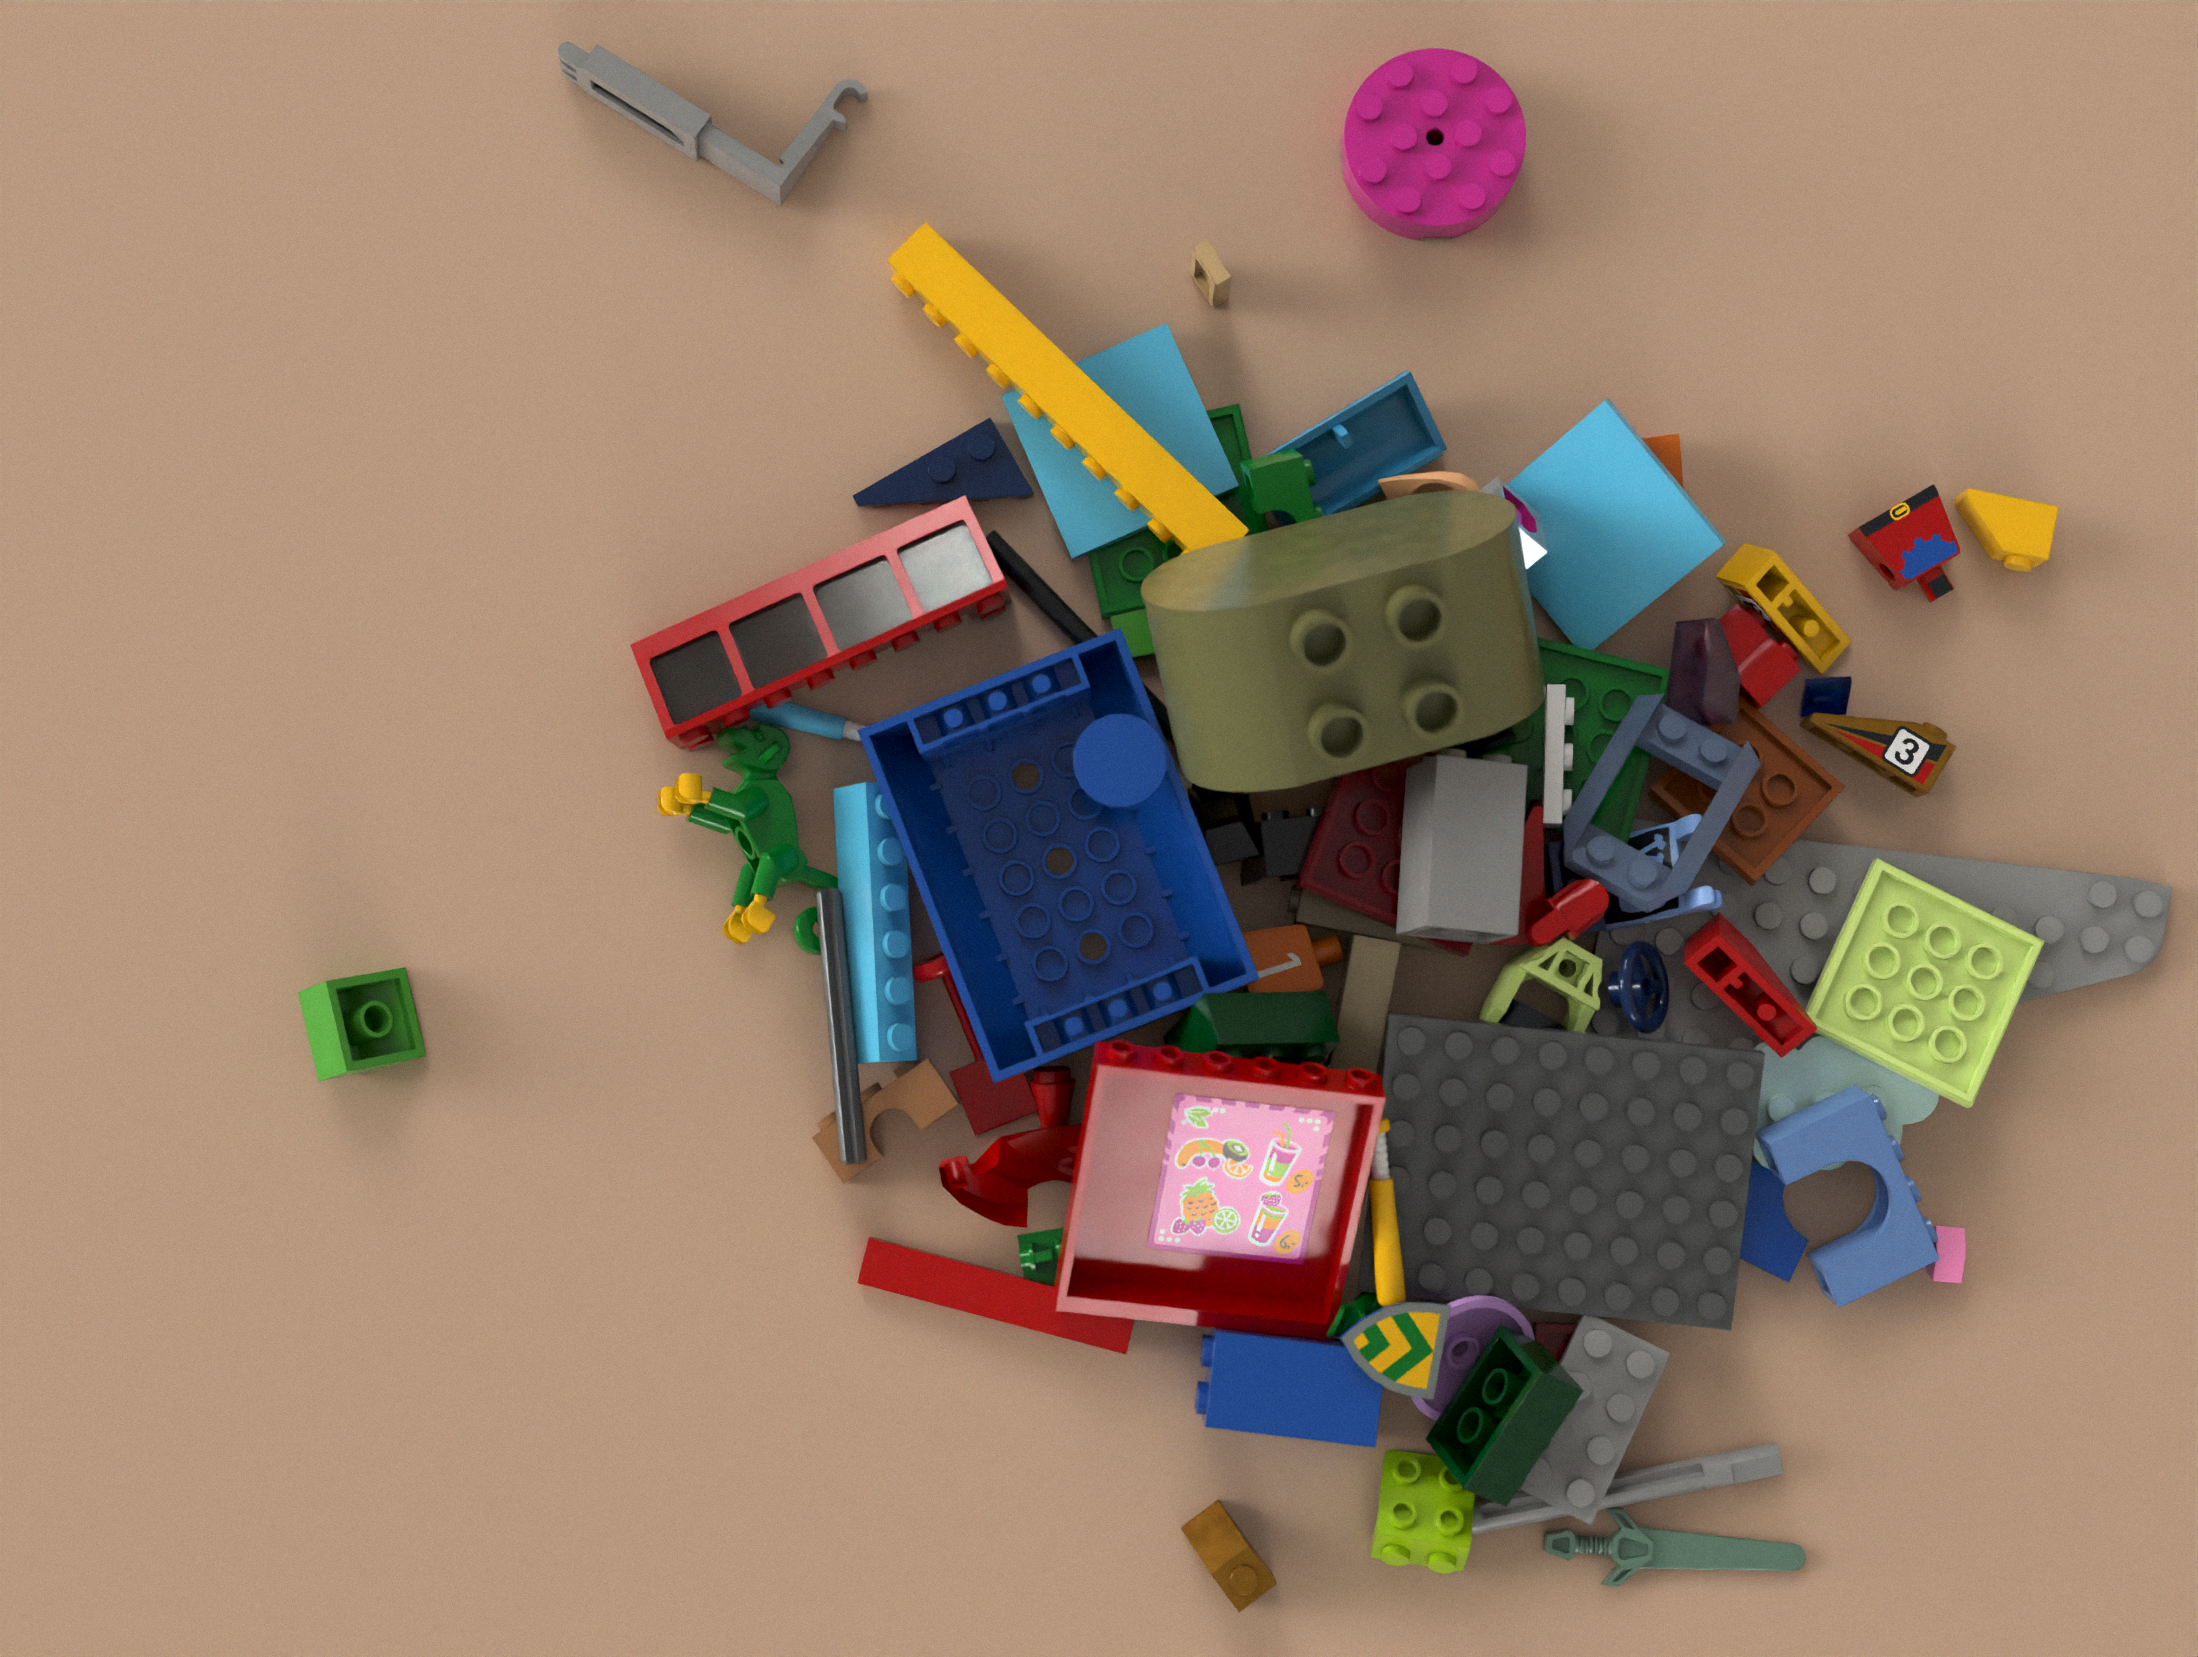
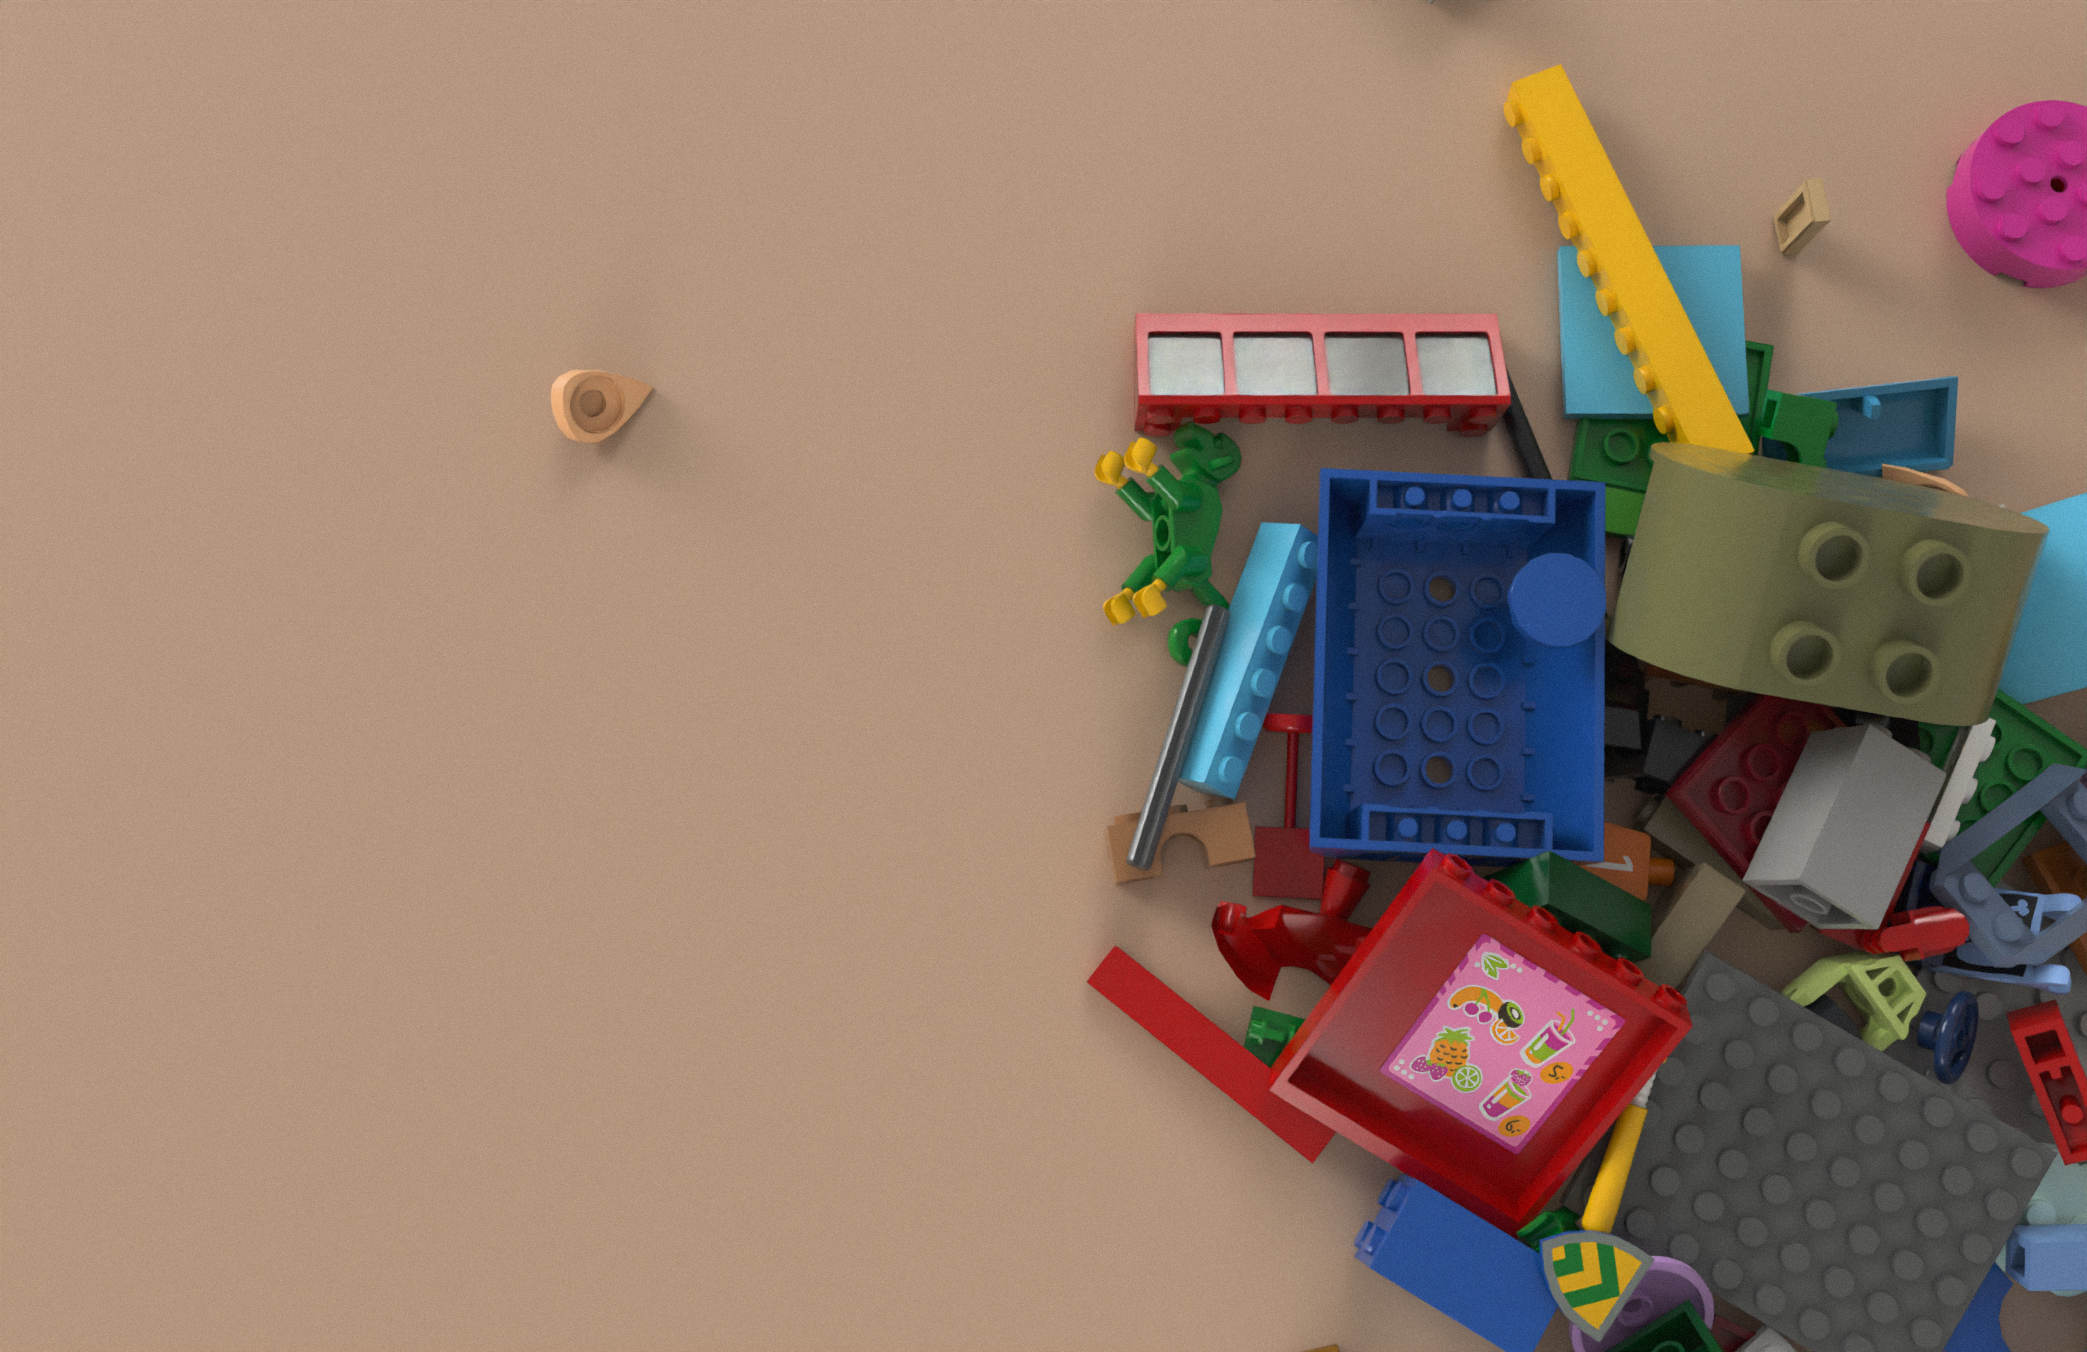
camera: 20 degrees right, 5 degrees down
(164, 953) = (594, 403): none -> light nougat piece
(361, 1023) = (740, 542): bright green slope -> none
(807, 720) = (1266, 456): medium azure piece -> none
(967, 465) = (1510, 290): dark blue wing -> none

